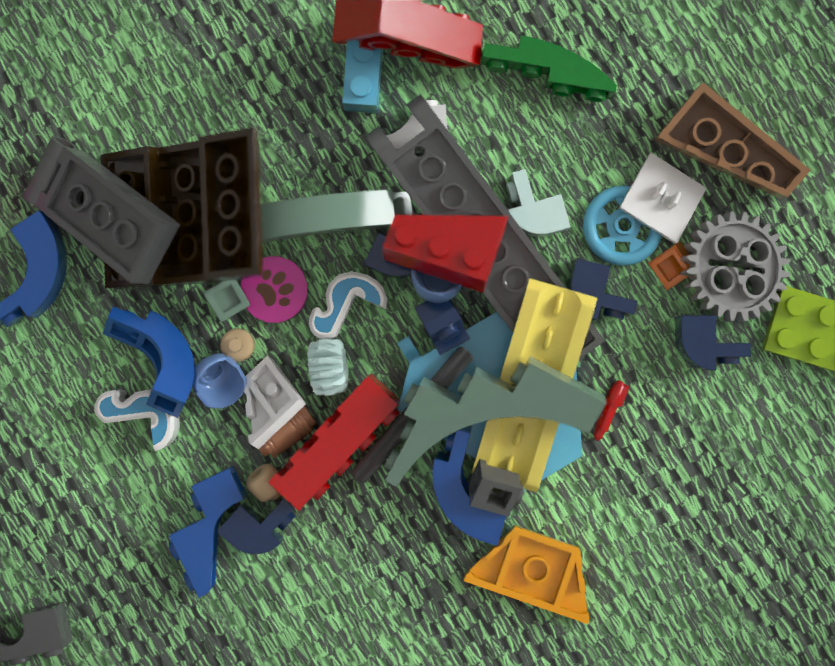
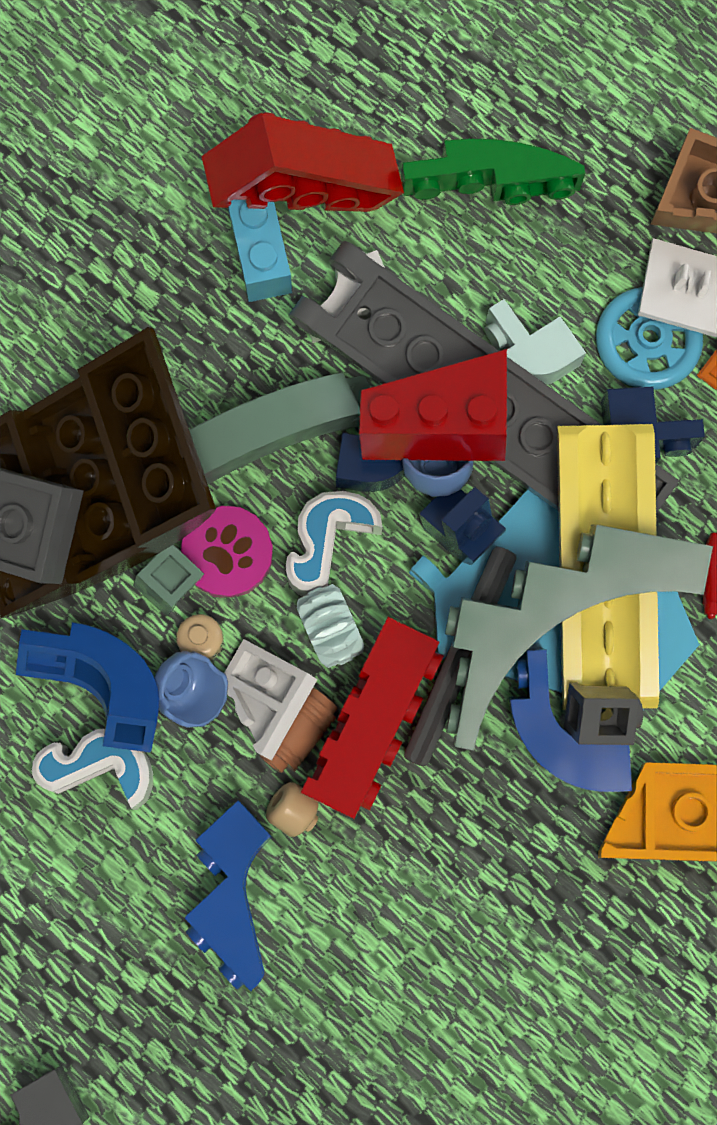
camera: 25 degrees left, 10 degrees down
(252, 533) = (297, 883): dark blue brick -> none

